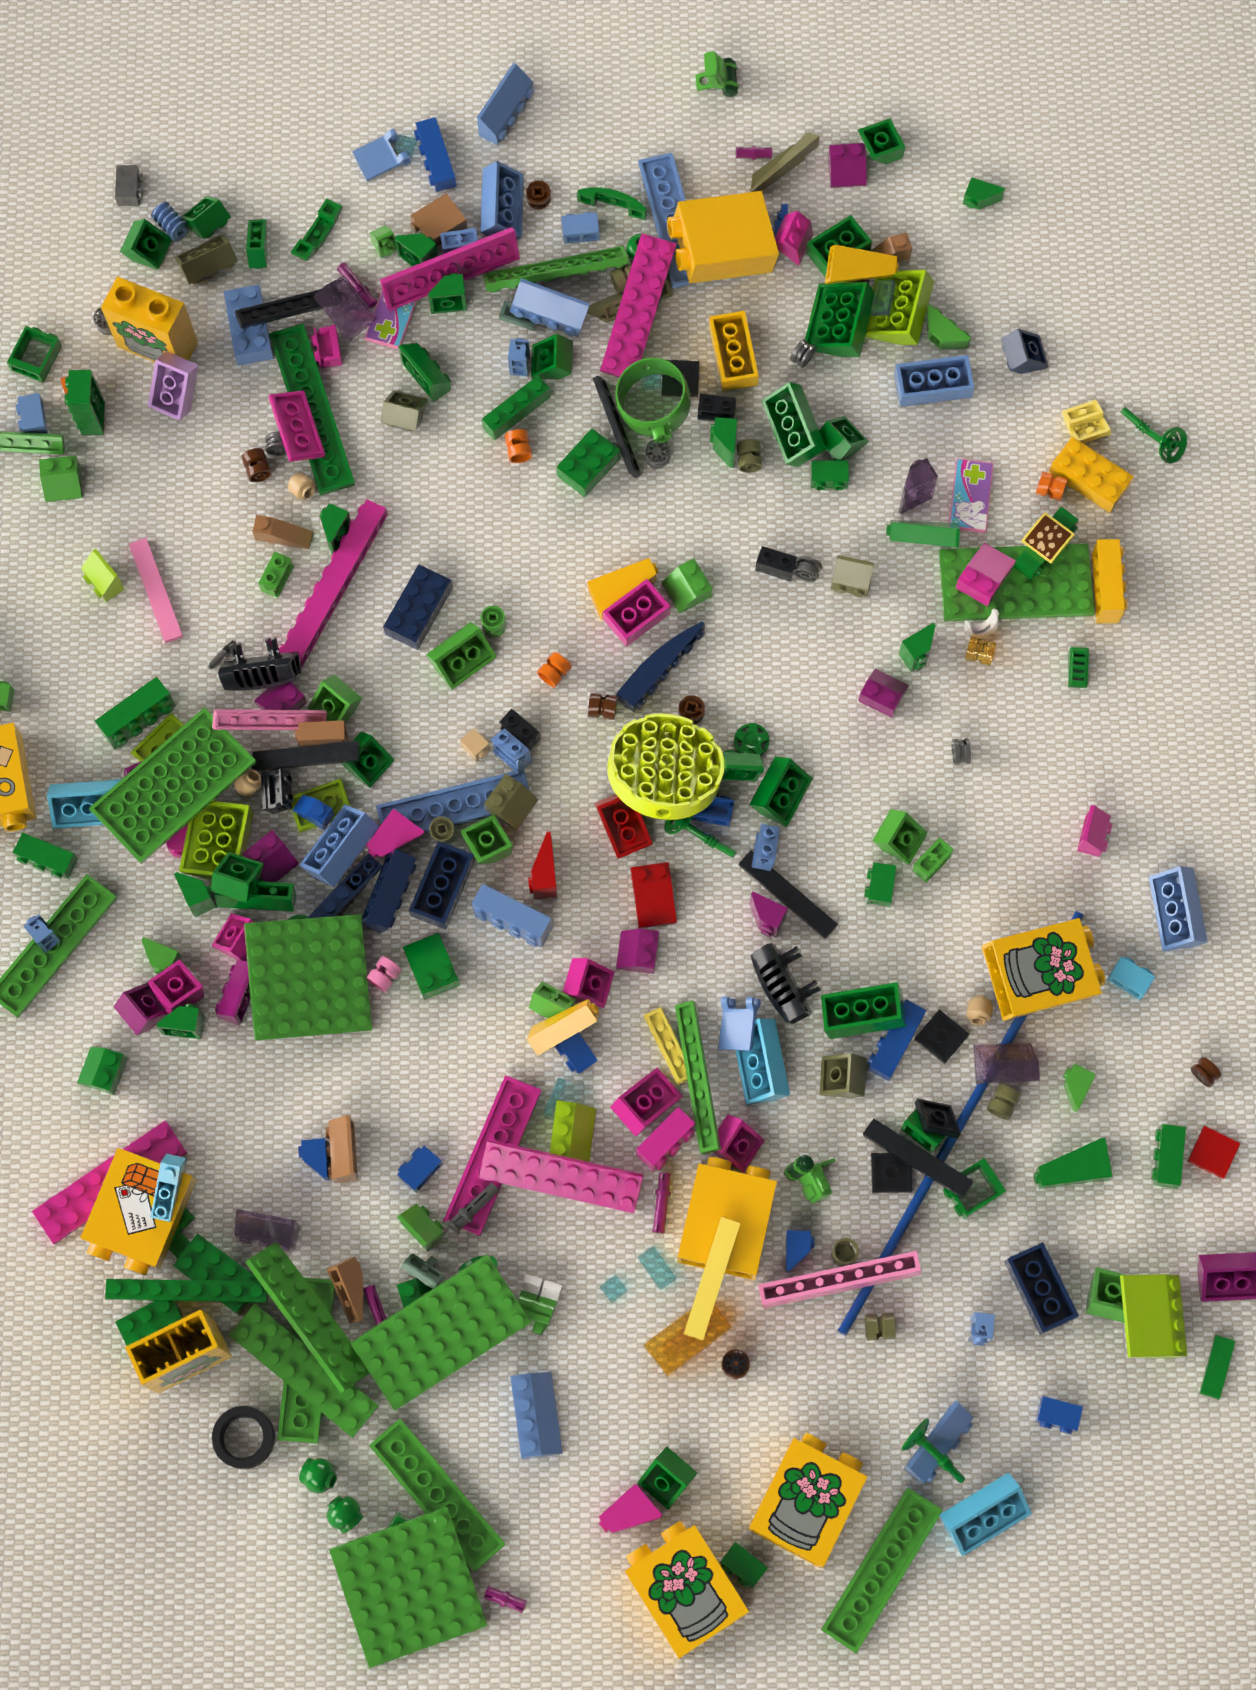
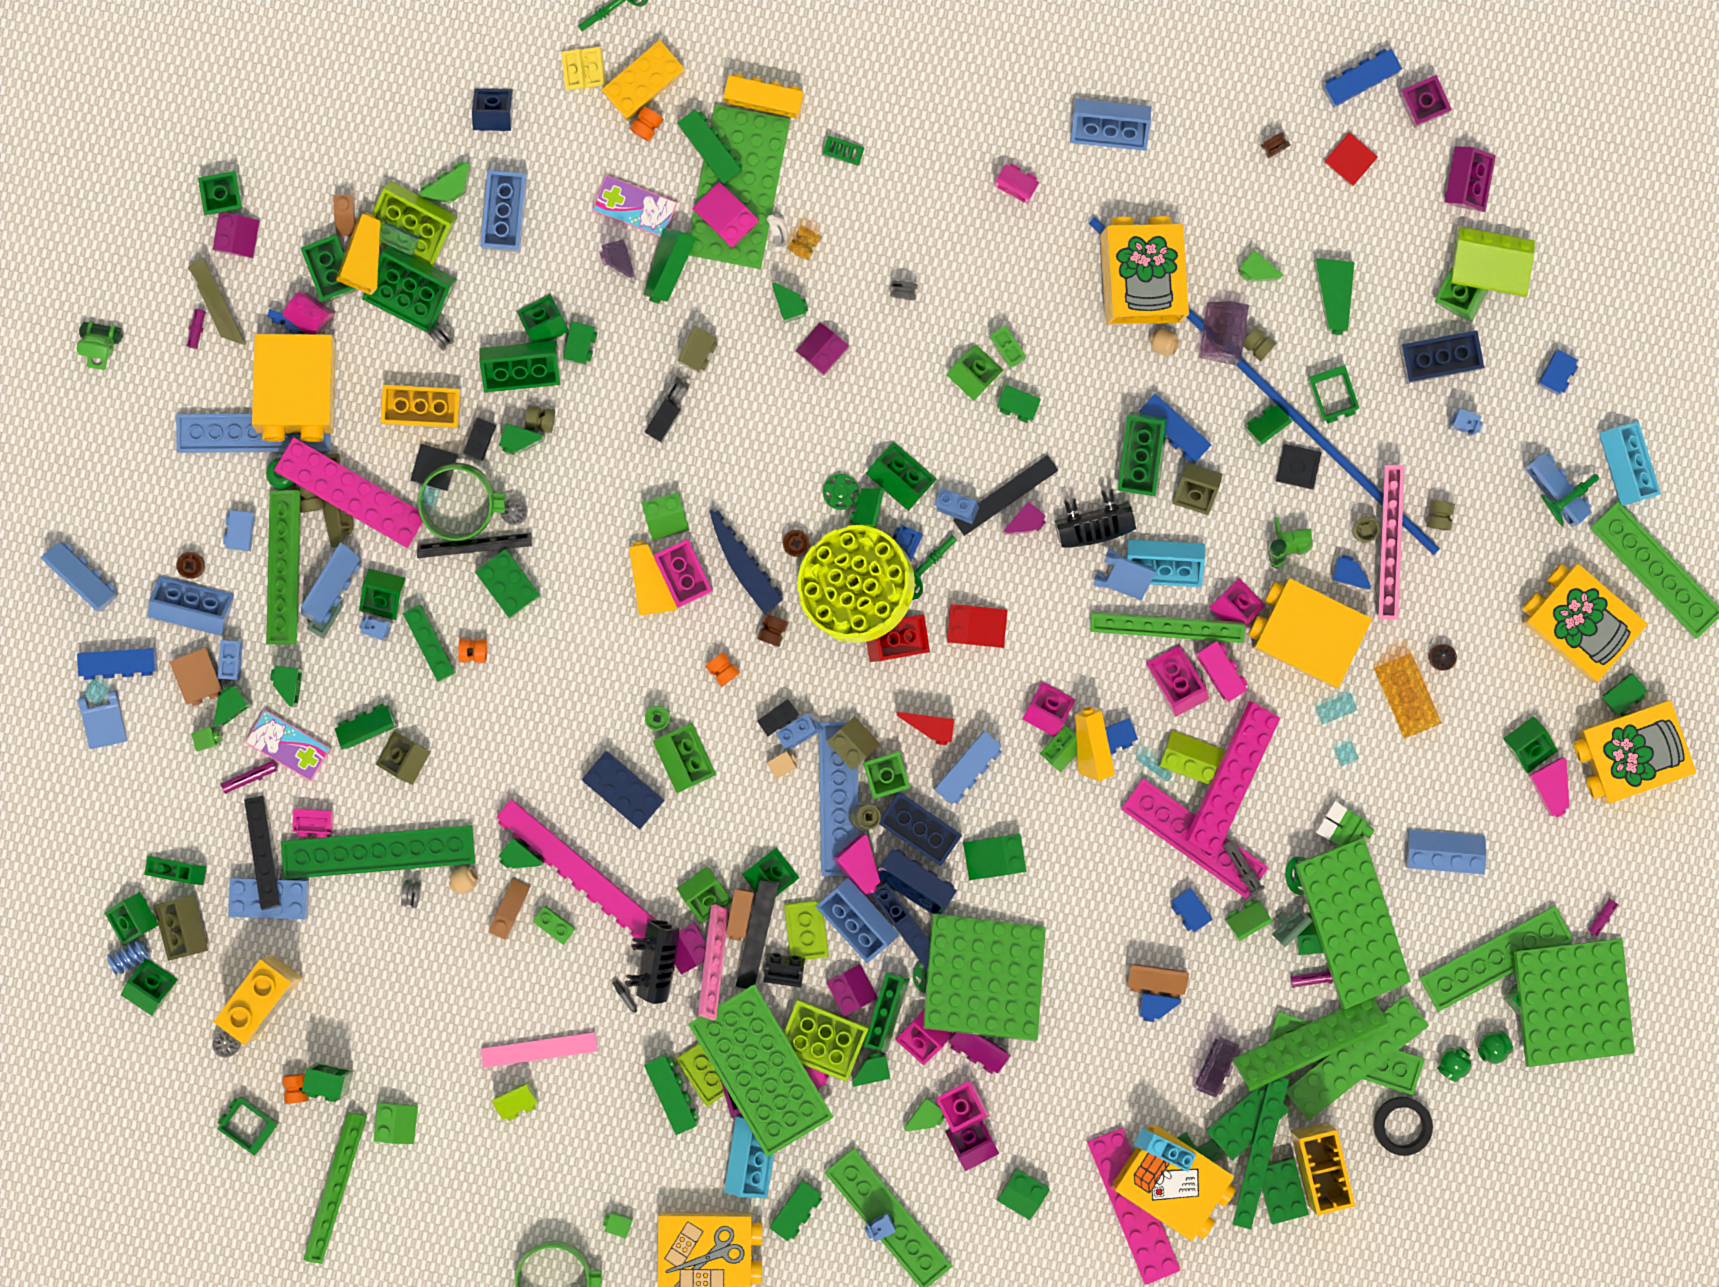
camera: 80 degrees left, 15 degrees up
(32, 414) = (316, 1140): medium blue hinge -> none
(128, 185) = (74, 992): flat silver brick -> none
(173, 385) = (326, 989): lavender brick -> none
(183, 1022) = (999, 1105): green slope -> none
(236, 877) = (870, 1026): green slope -> none
(248, 783) = (771, 995): tan head -> none
(256, 465) = (422, 921): reddish brown wheel -> none
(296, 426) = (399, 871): dark pink tile -> none
(314, 811) = (814, 939): blue slope -> none
(319, 231) = (177, 805): green slope -> none
(345, 307) = (278, 794): clear purple slope -> none
(348, 1283) = (1285, 999): medium nougat slope -> none
(383, 974) = (999, 909): bright pink wheel -> none
(467, 260) = (258, 673): dark pink plate -> none
(613, 197) = (206, 511): green slope -> none
(638, 950) = (1028, 654): magenta slope -> none
(661, 1202) = (1276, 689): magenta pin -> none
(667, 1044) = (1125, 647): light yellow tile -> none
(712, 1278) = (1366, 660): light yellow tile -> none
(918, 1158) = (1293, 439): black tile -> none
(937, 1118) = (1261, 411): black tile -> none
(941, 1036) = (1180, 384): black tile -> none
(982, 194) = (303, 105): green slope -> none
(1048, 537) = (709, 145): slope -> none
(1131, 977) = (1167, 189): medium azure brick -> none
(1168, 1156) = (1345, 203): green brick -> none
(1217, 1367) = (1548, 214): green tile -> none

